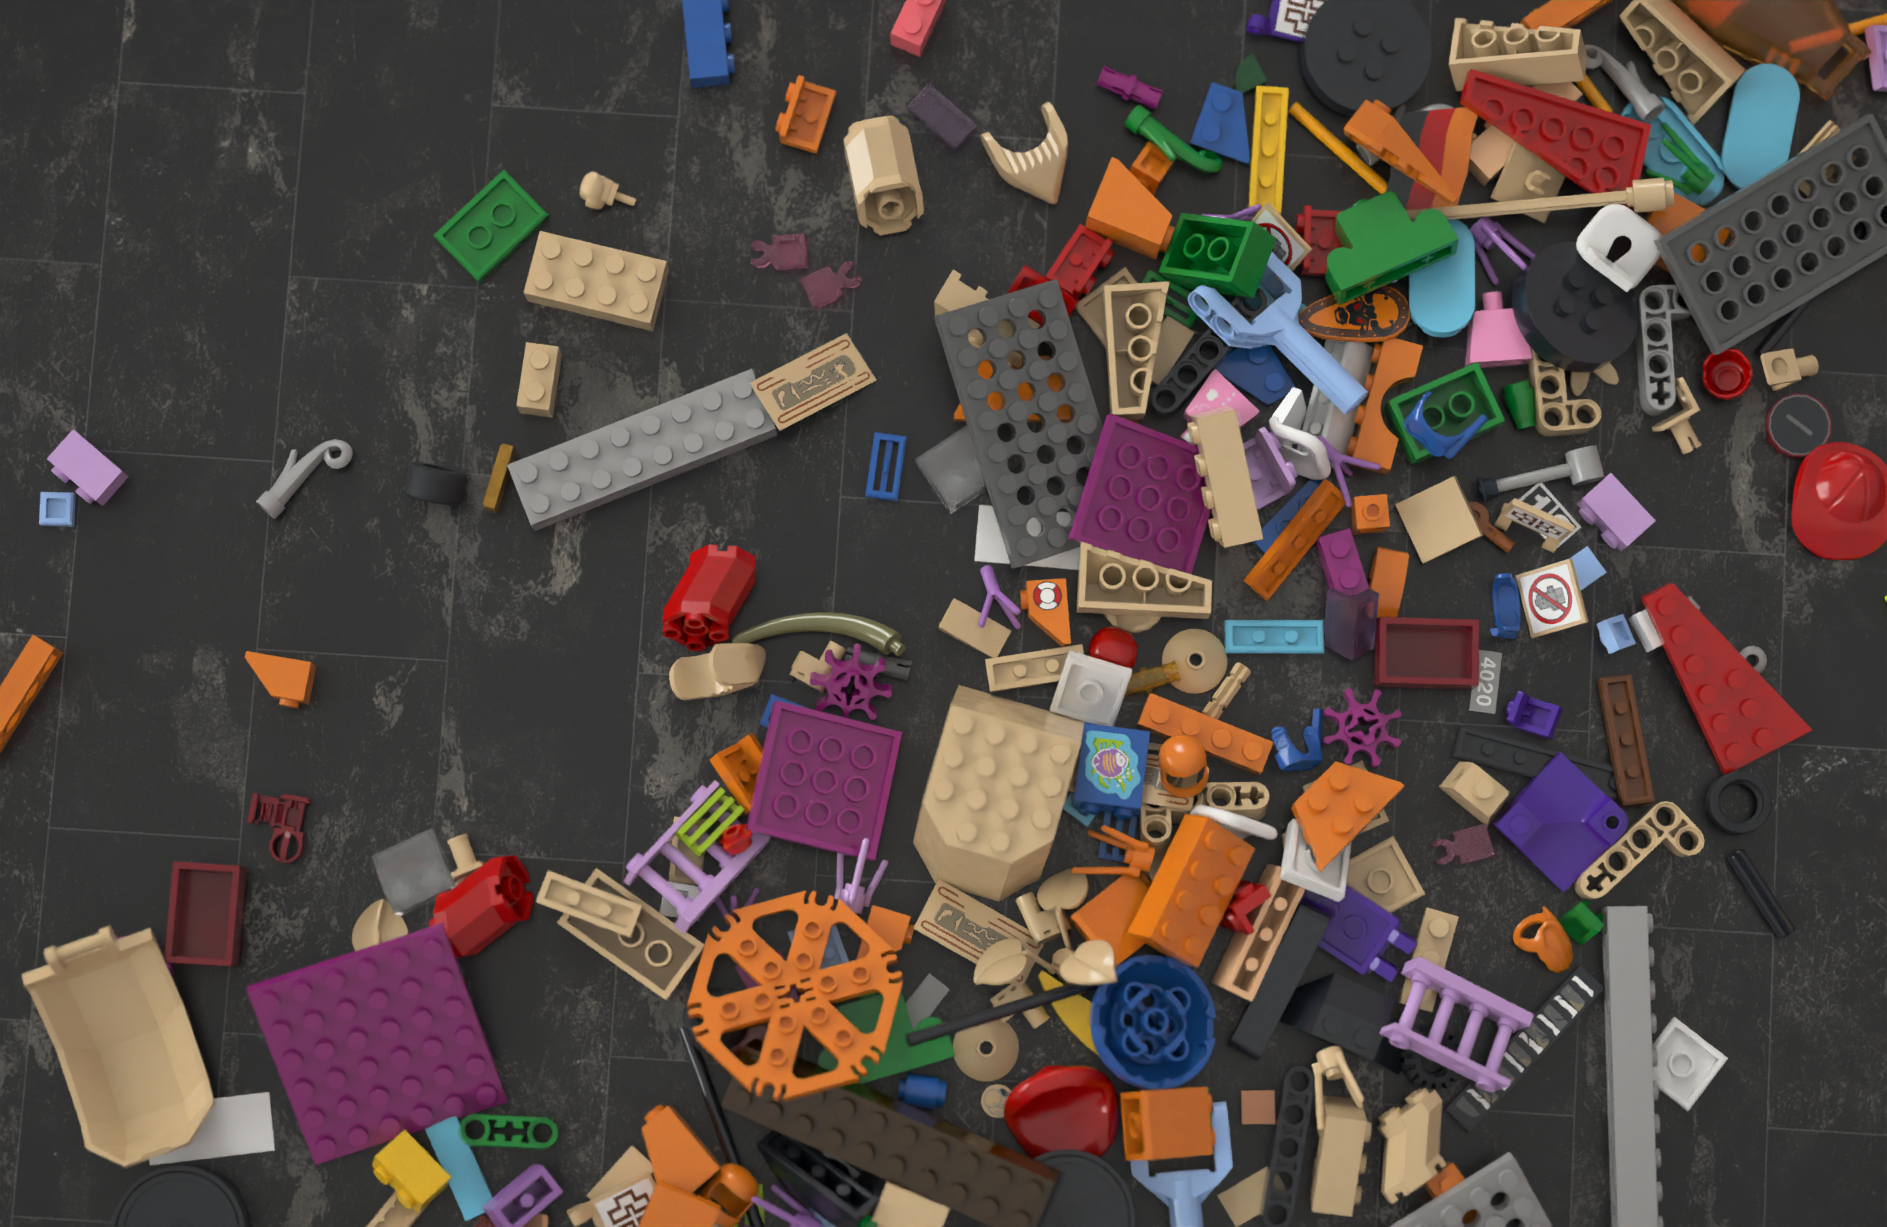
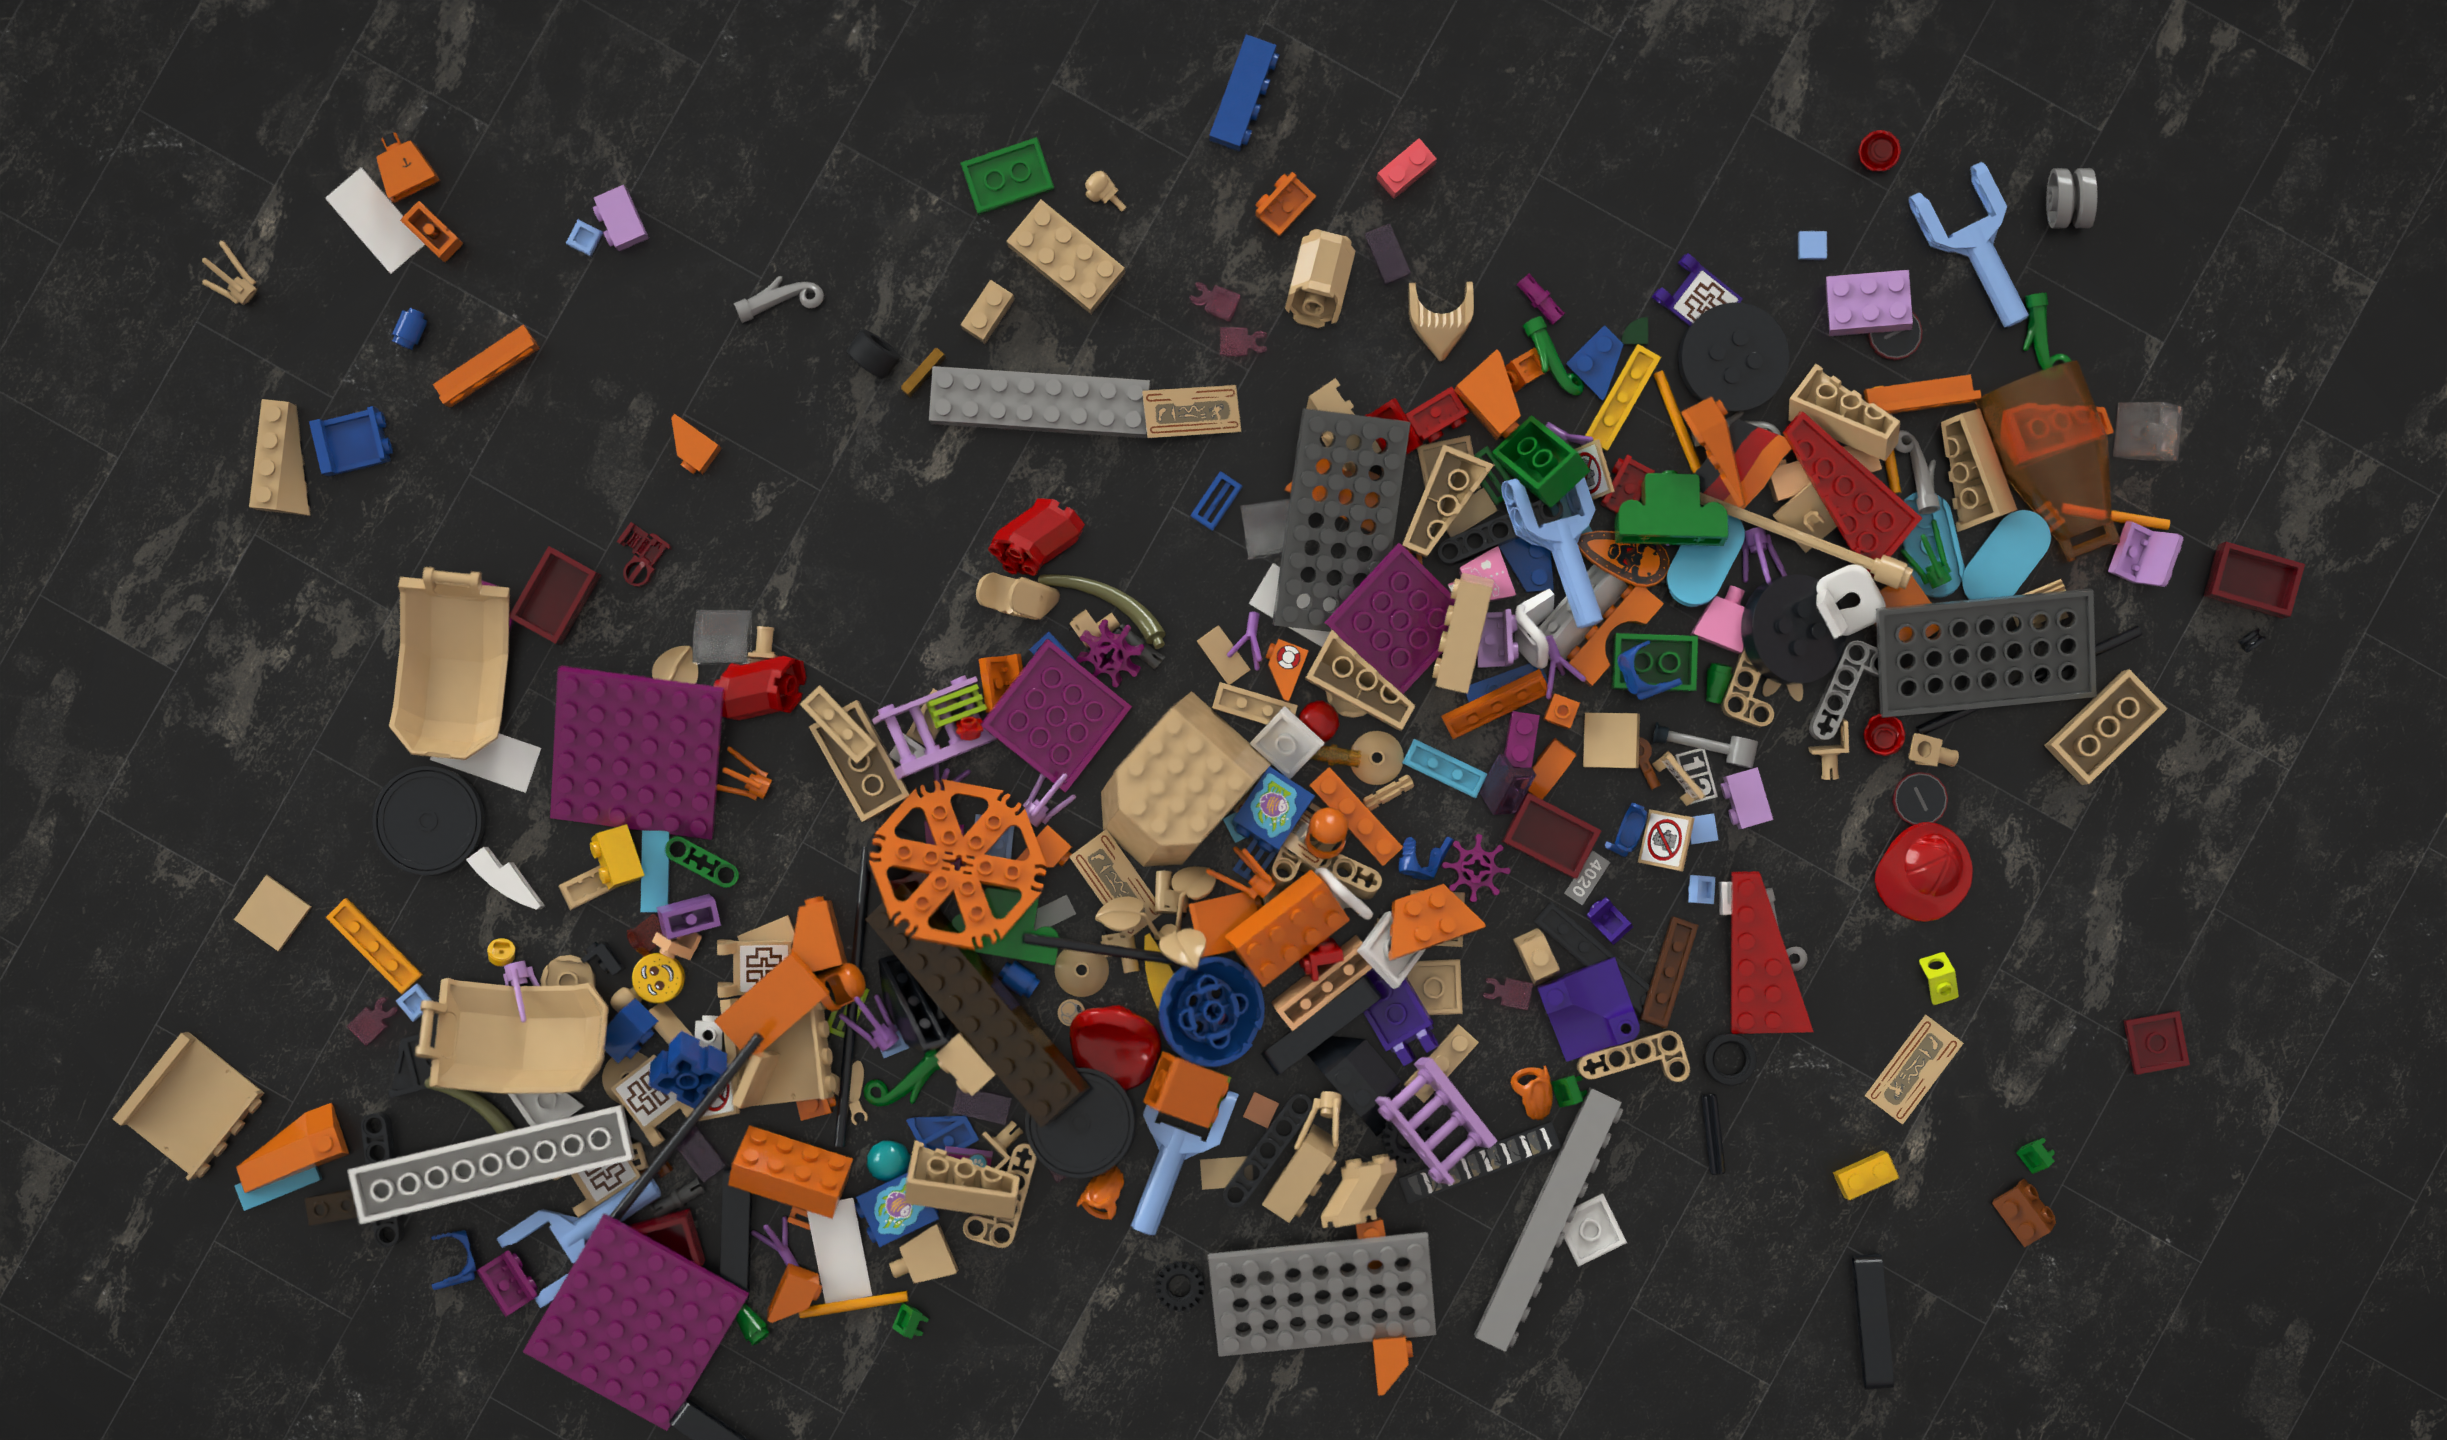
camera: 30 degrees right, 5 degrees up
(529, 1015) = (756, 784): none -> orange plant

